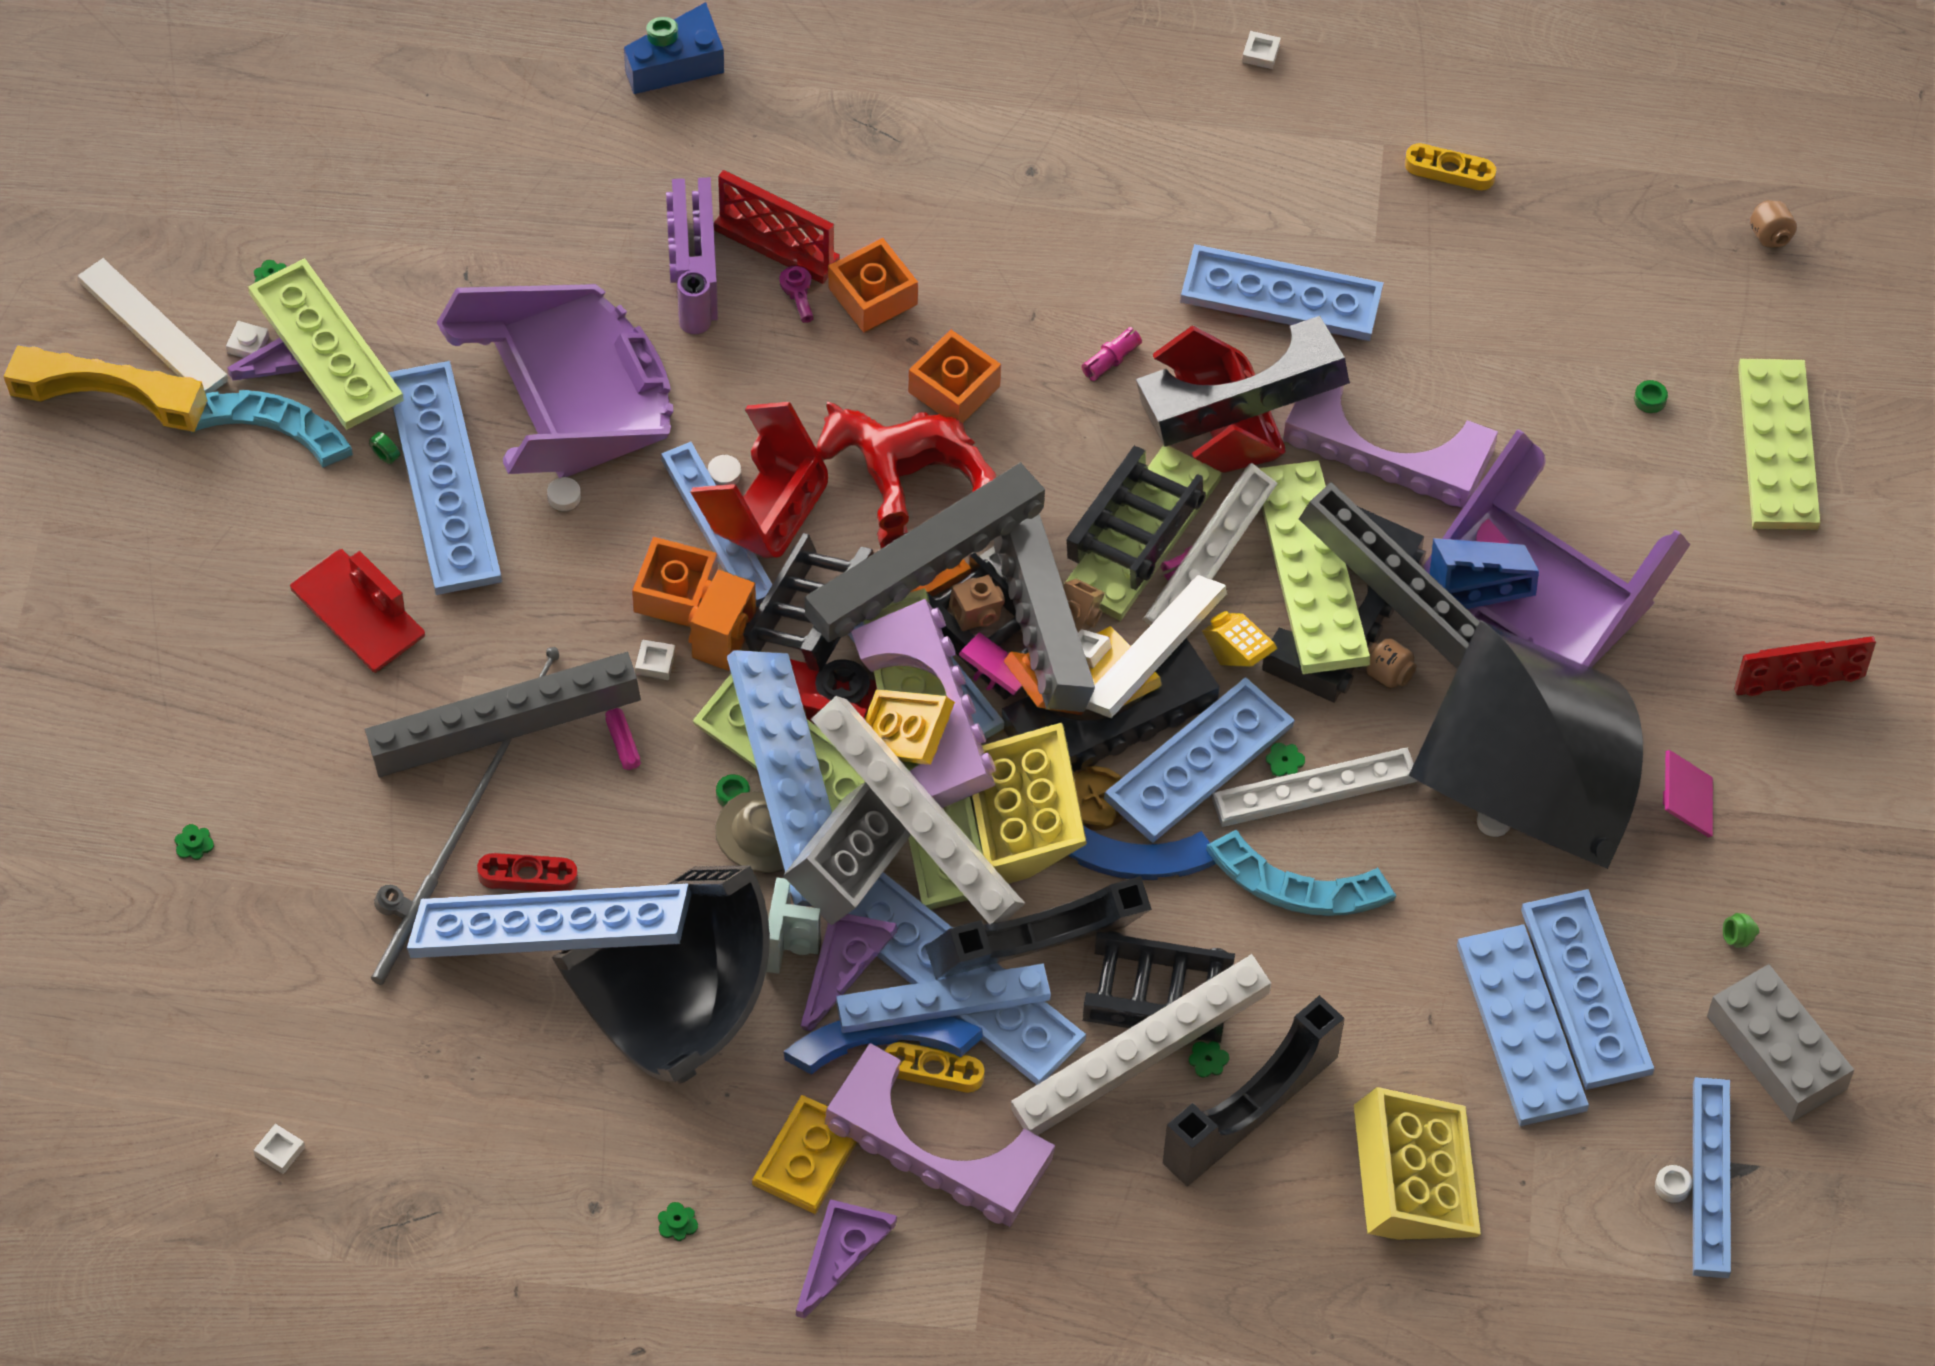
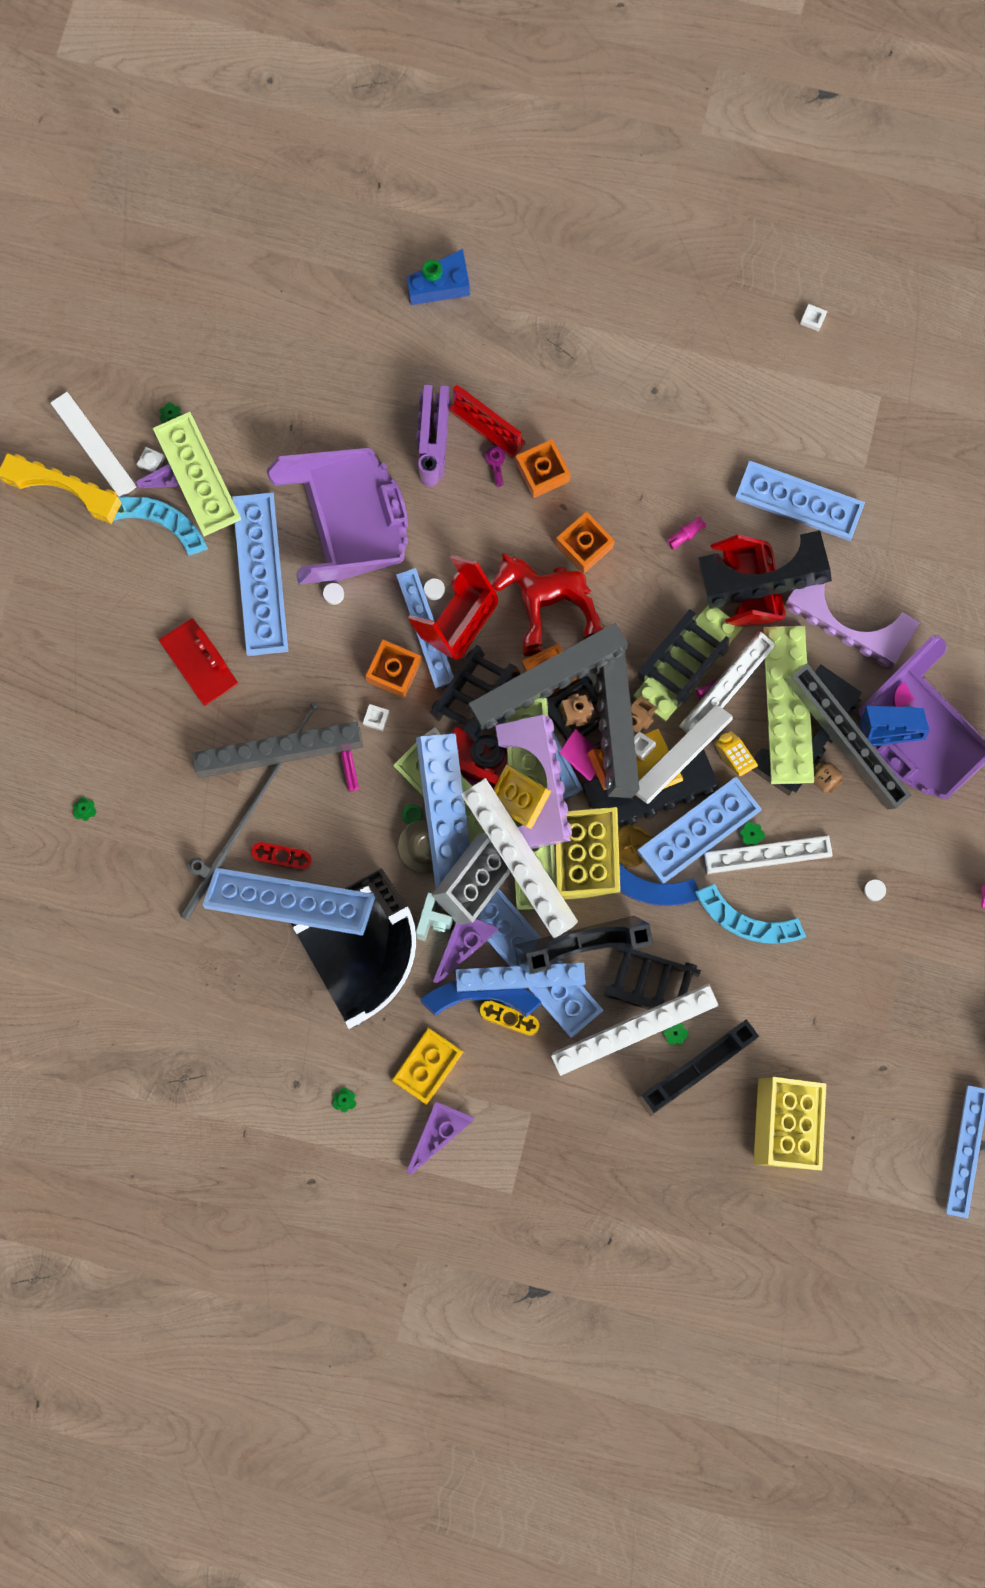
camera: 10 degrees right, 20 degrees up
(279, 1149) = (114, 1023): white tile -> none
(384, 448) = (226, 549): green tile -> none
(721, 618) = (418, 700): orange brick -> none
(990, 1184) = (535, 1104): lavender arch -> none
(1457, 177) = (920, 411): yellow beam -> none
(1522, 1025) = (869, 1033): light blue plate -> none
(1537, 745) = (909, 853): black panel -> none
(1587, 989) = (912, 1015): light blue plate -> none
(1673, 1183) = (943, 1151): white tile -> none

